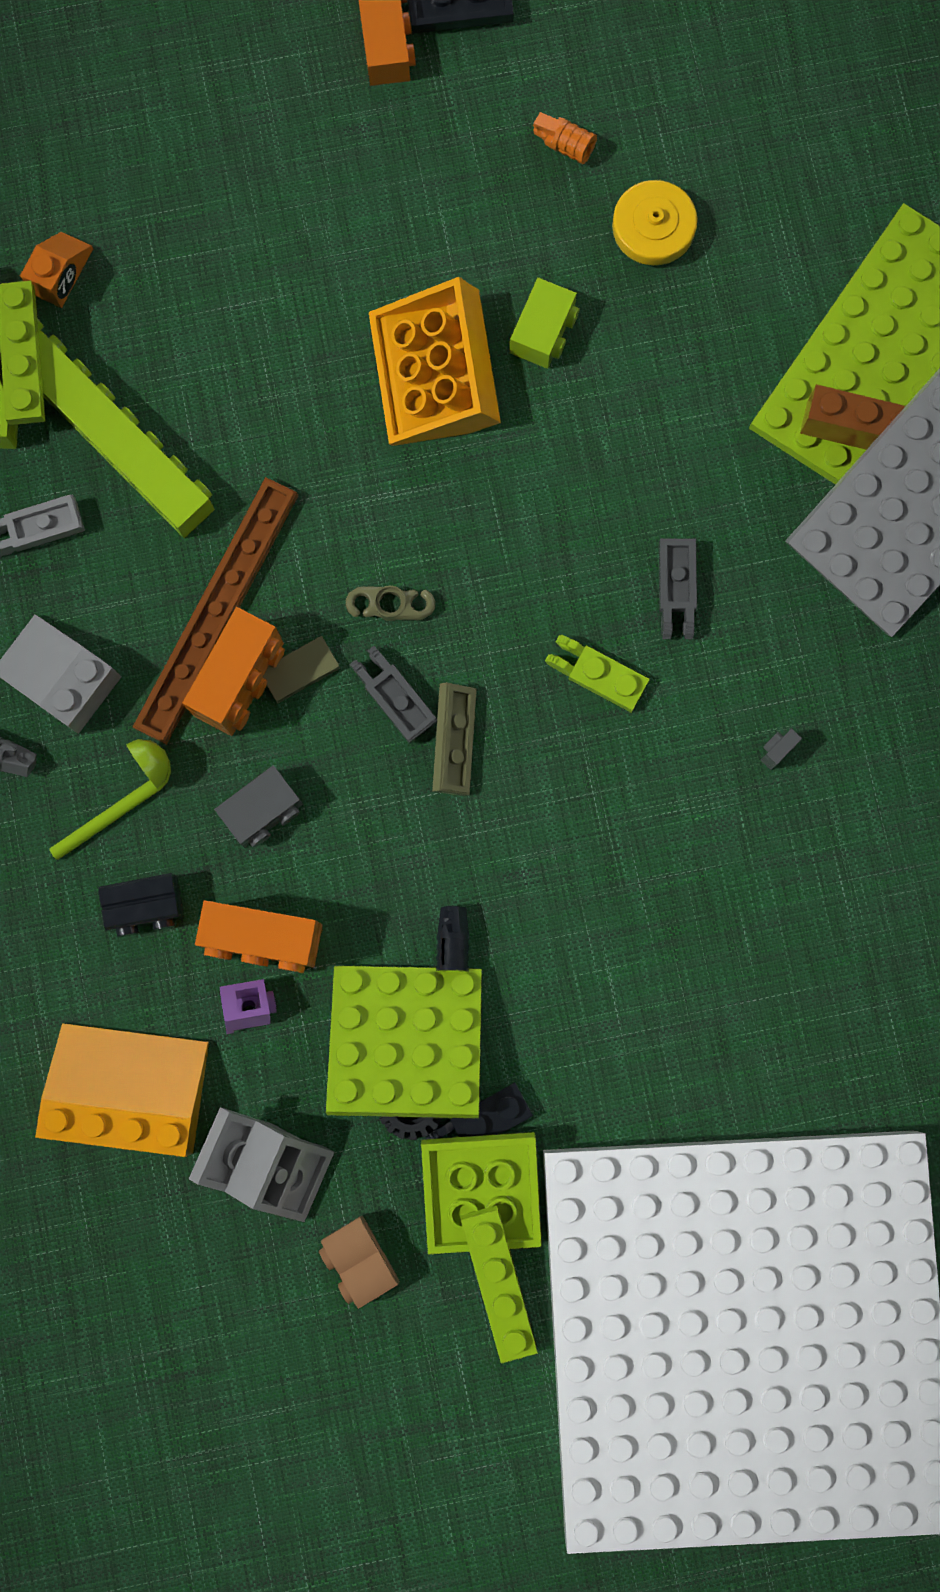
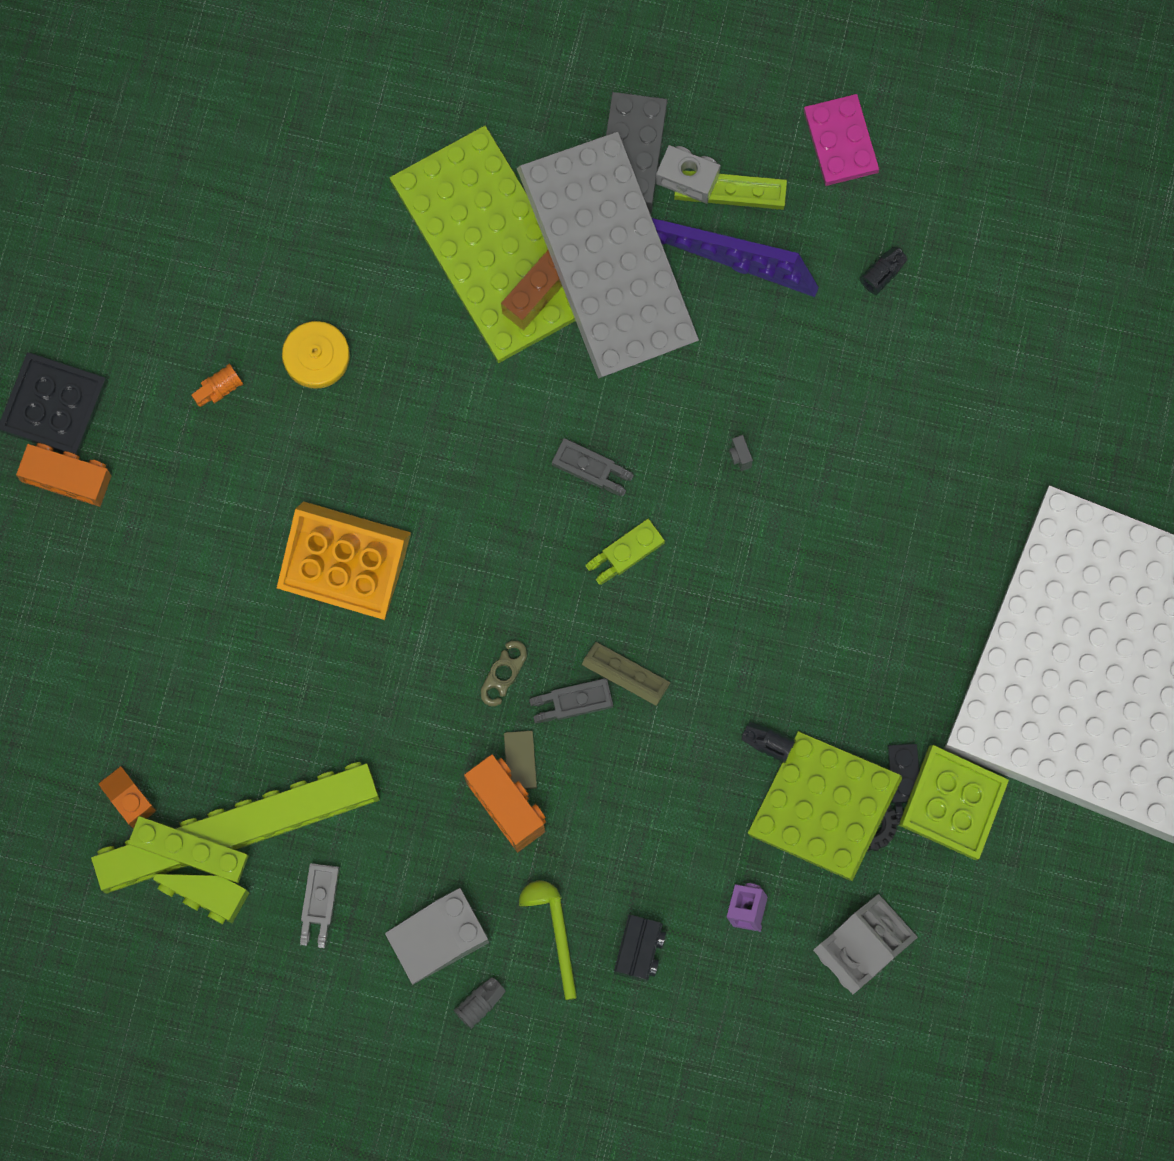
camera: 65 degrees left, 5 degrees down
(123, 1090) = (766, 1020): light orange slope -> none
(218, 602) = (447, 800): dark orange tile -> none
(258, 936) = (704, 872): orange brick -> none
(259, 808) = (609, 832): dark grey brick -> none
(359, 1262) = (962, 910): medium nougat brick -> none
(498, 1284) = (1021, 820): lime plate -> none
(543, 323) = (351, 467): lime brick -> none

